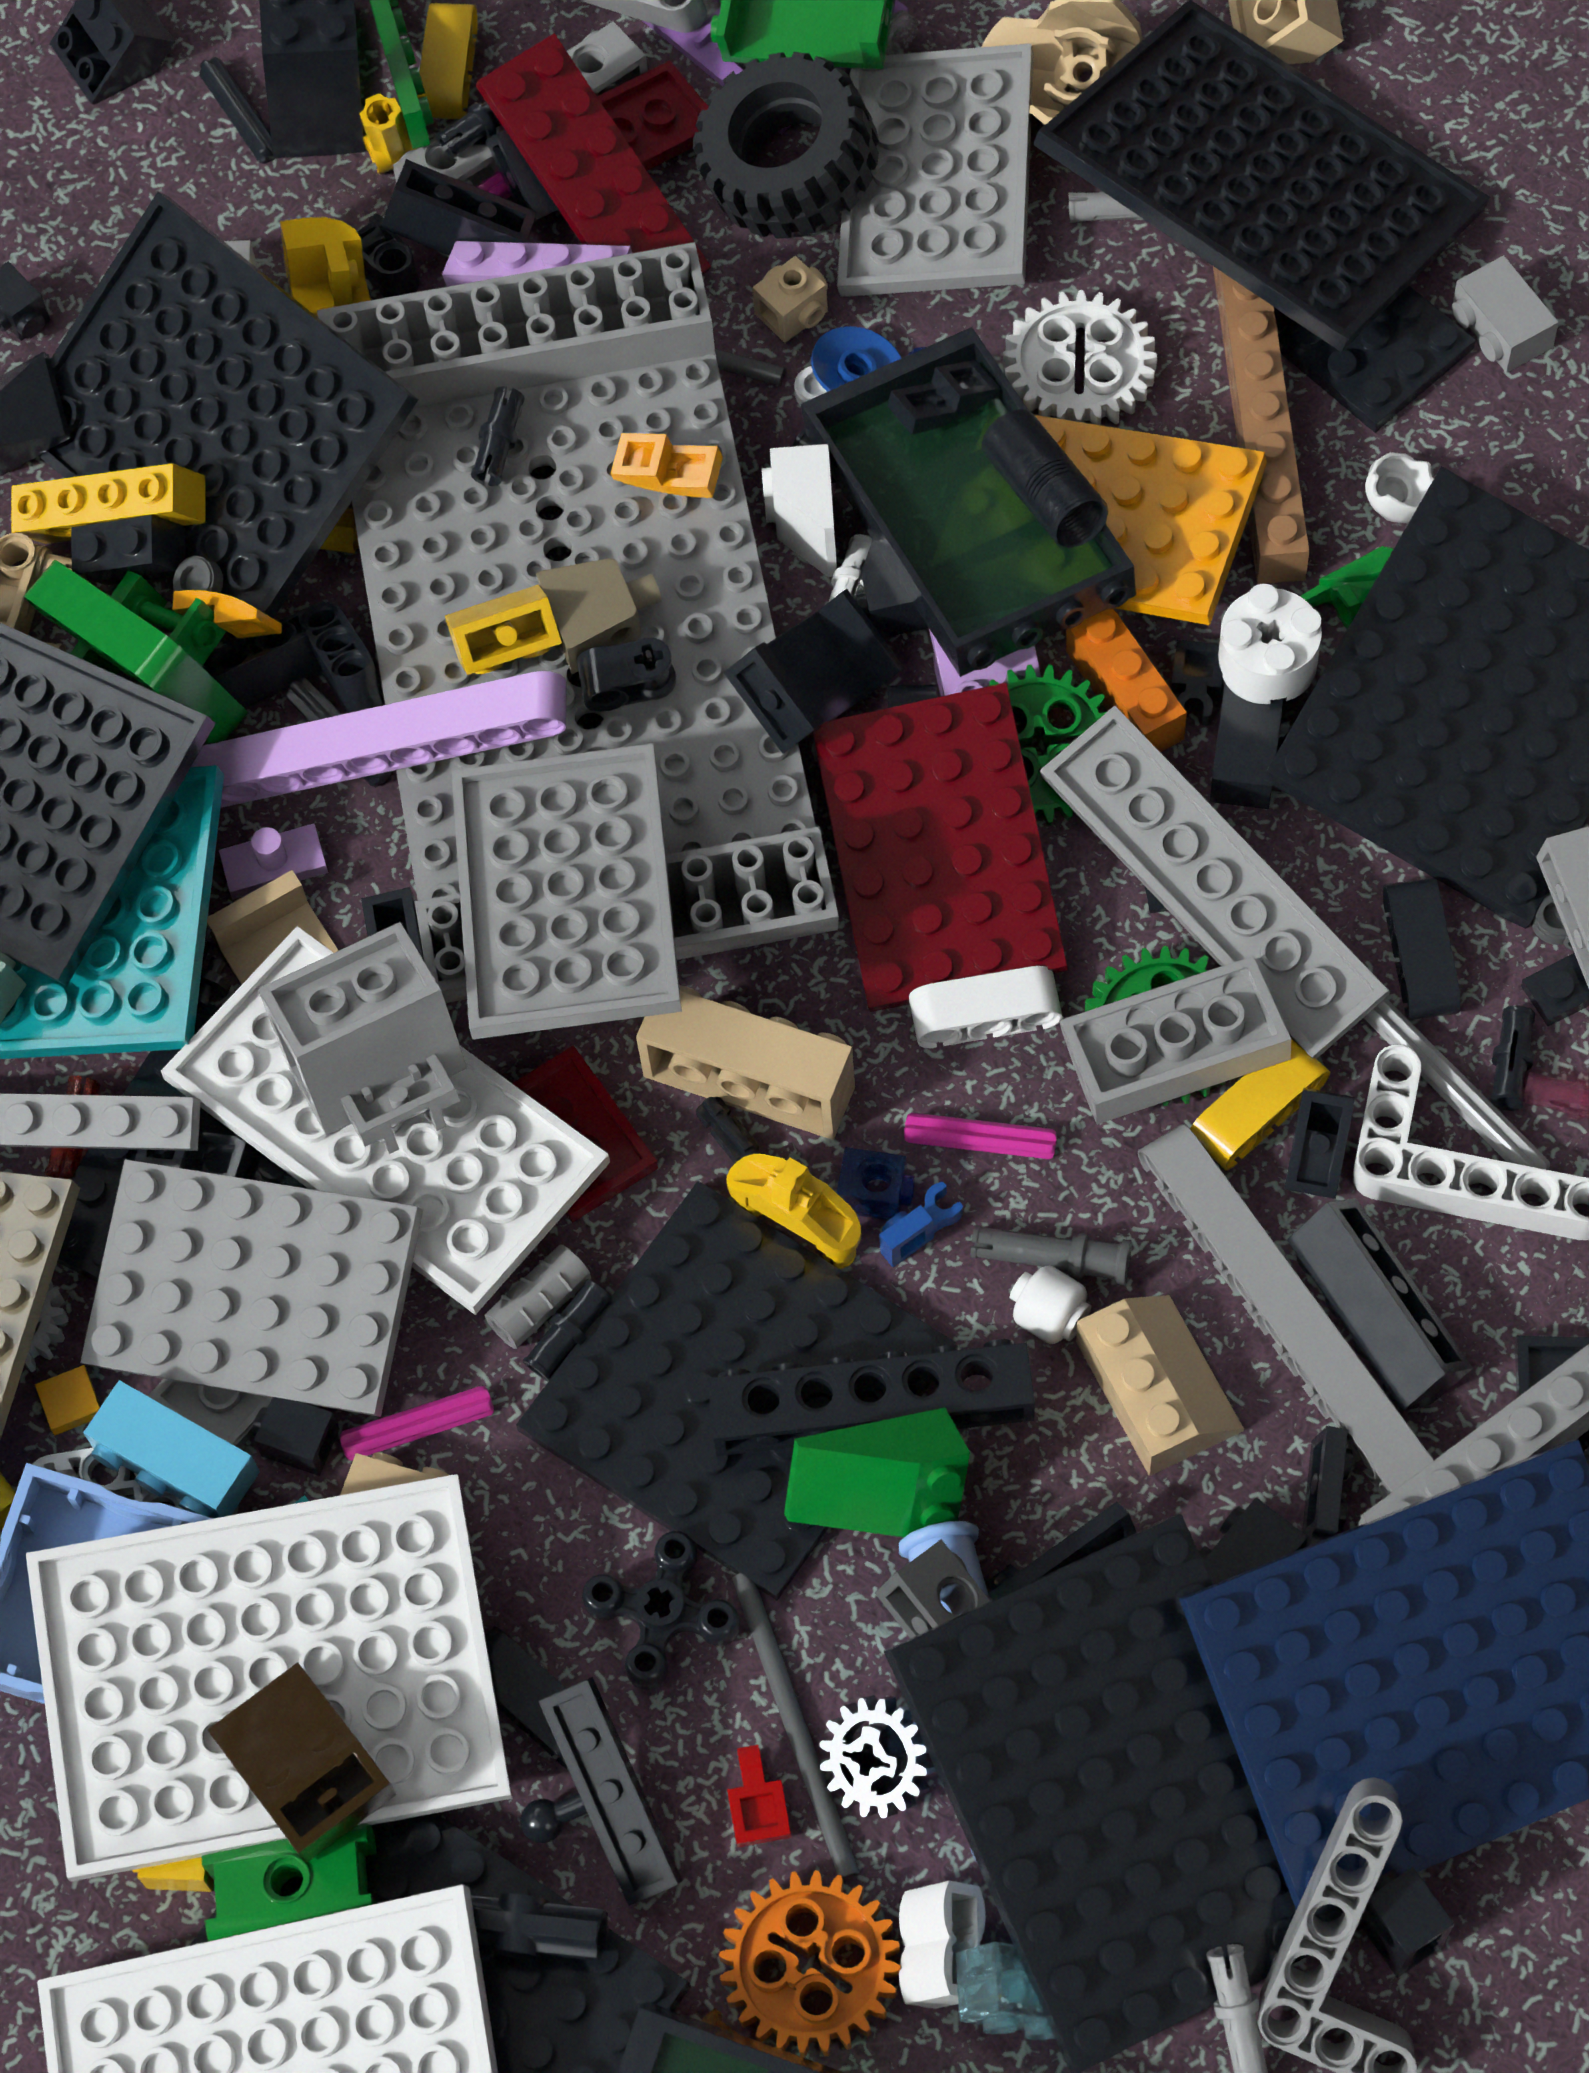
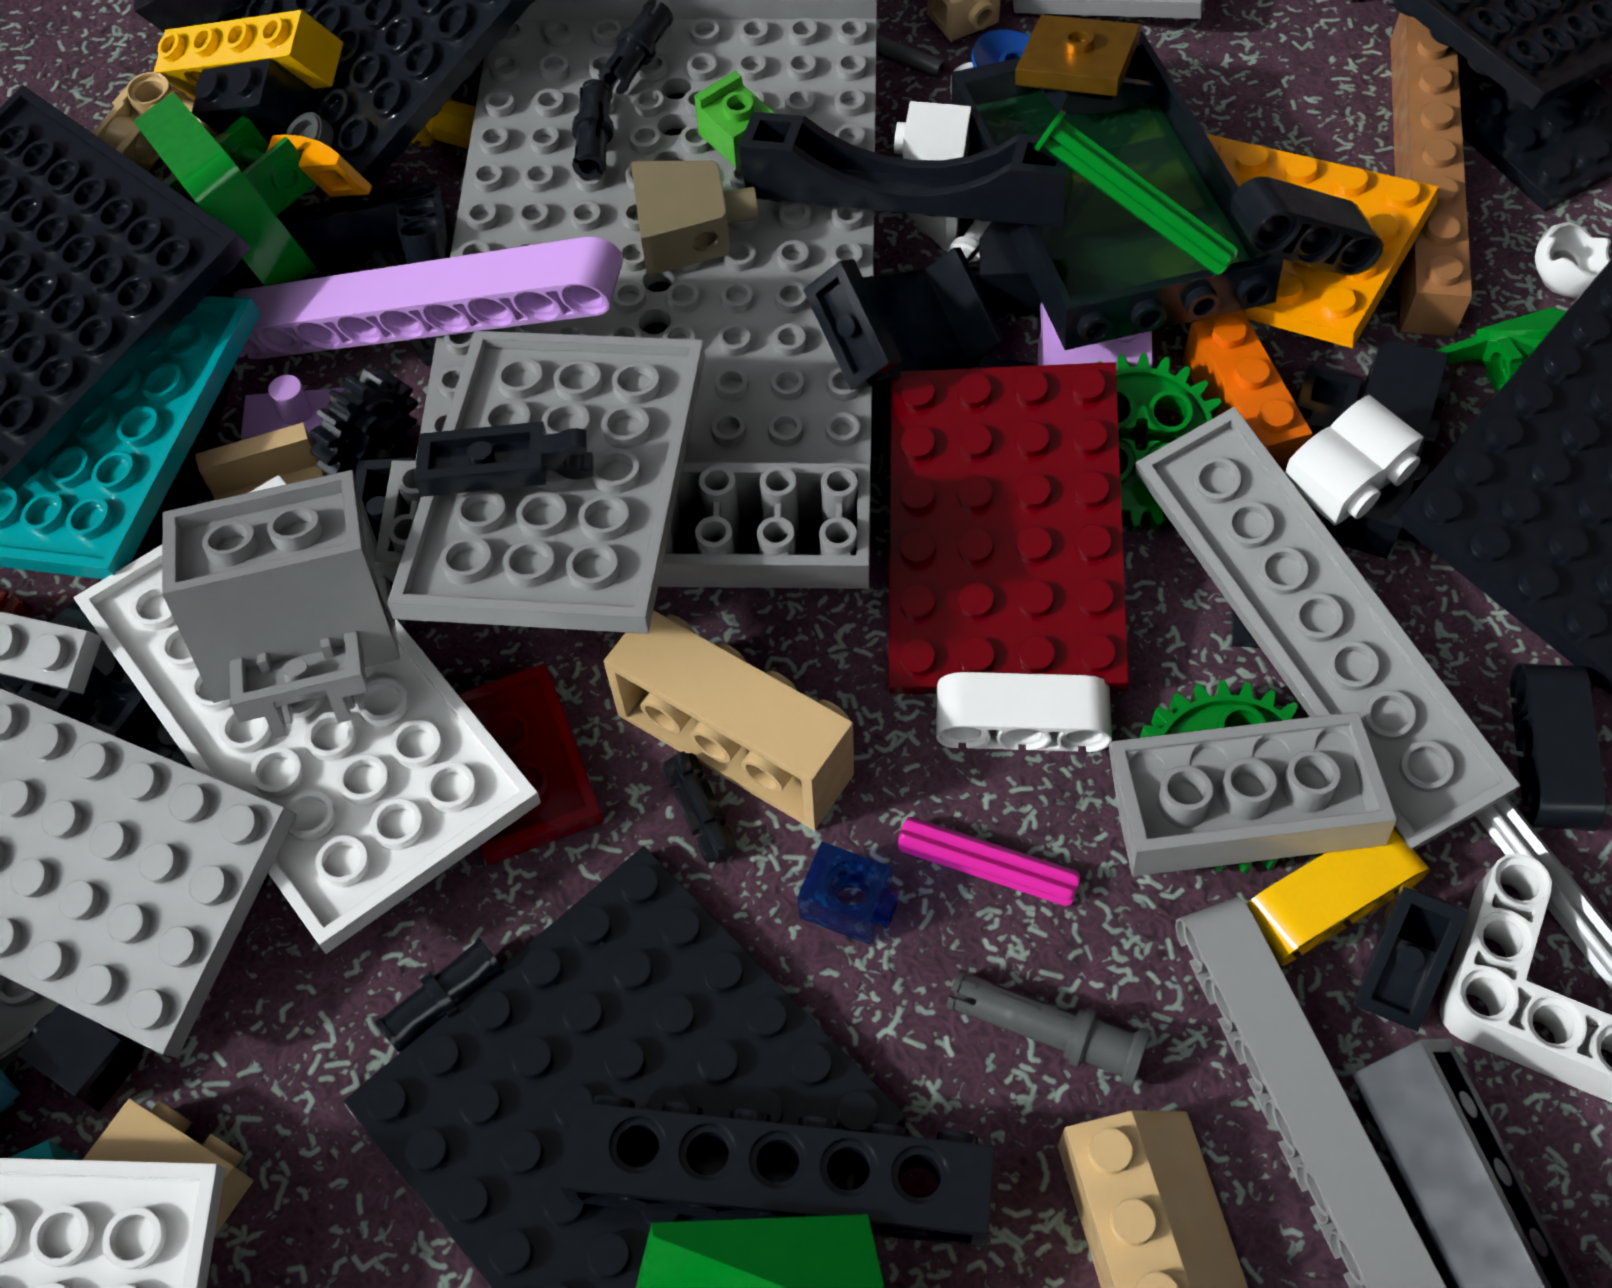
camera: 10 degrees right, 5 degrees down
(351, 863) = (363, 422): none -> black gear
(417, 1422) = (229, 1071): dark pink axle -> none
(482, 535) = (592, 129): none -> black pin
(503, 630) = (581, 210): yellow brick -> none
(521, 889) = (498, 458): none -> black plate
(537, 1296) = (416, 946): light grey axle -> none
(615, 504) = (724, 114): none -> bright green brick
(620, 676) = (696, 276): black piece -> none
(659, 466) = (790, 92): light orange slope -> none
(798, 1202) = (748, 900): yellow connector -> none
(880, 535) = (802, 163): none -> black arch
(910, 1231) = (879, 960): blue plate -> none
(917, 373) = (1077, 55): none -> pearl gold plate
(996, 537) = (1137, 195): none -> green axle
(1045, 478) = (1192, 156): black piece -> none
(1049, 1304) = (1033, 1093): white head -> none
(1124, 361) = (1282, 97): white gear -> none
(1149, 529) = (1306, 226): none -> black beam
(1221, 736) = (1353, 460): none -> white brick
(1269, 645) = (1426, 369): white brick -> none

